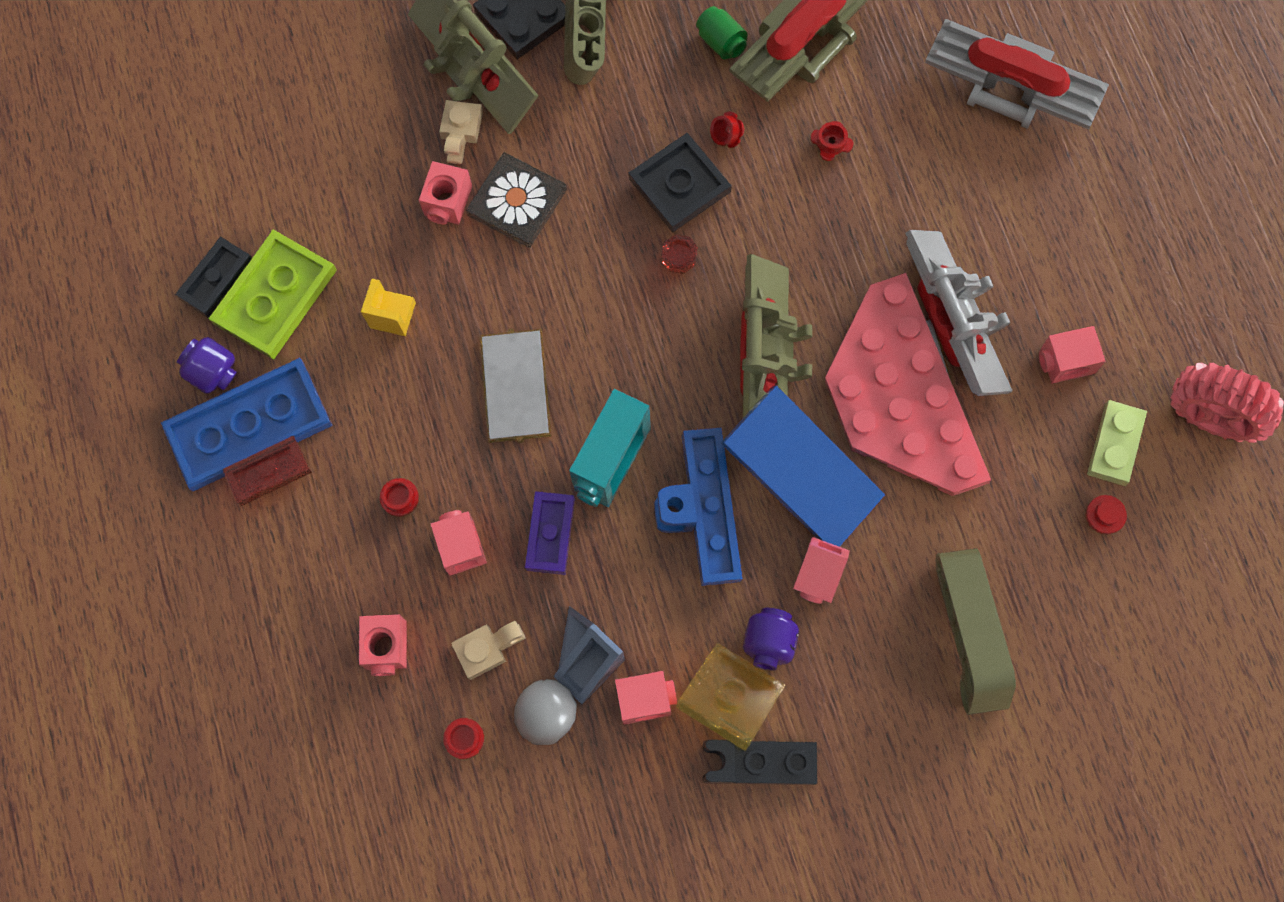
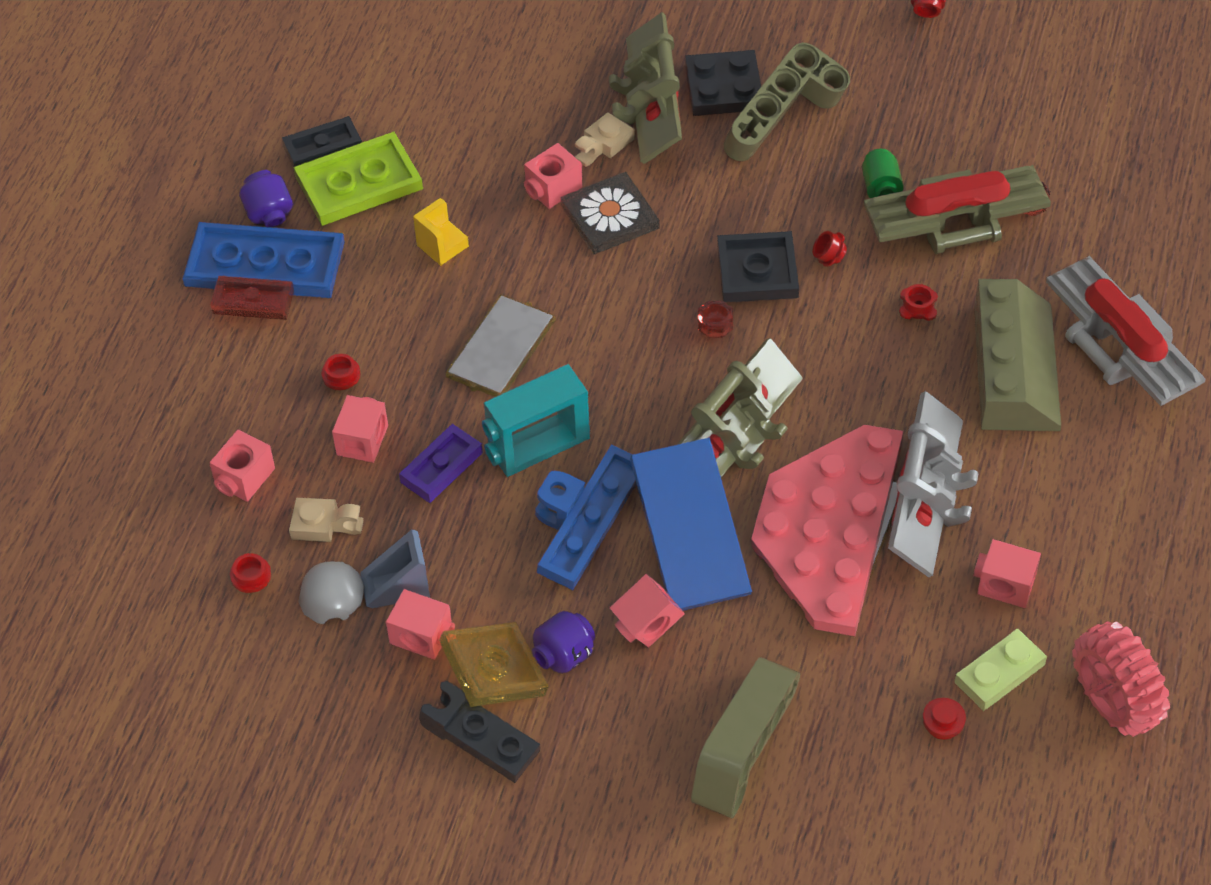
camera: 30 degrees right, 20 degrees down
(942, 149) = (1015, 358): none -> olive slope

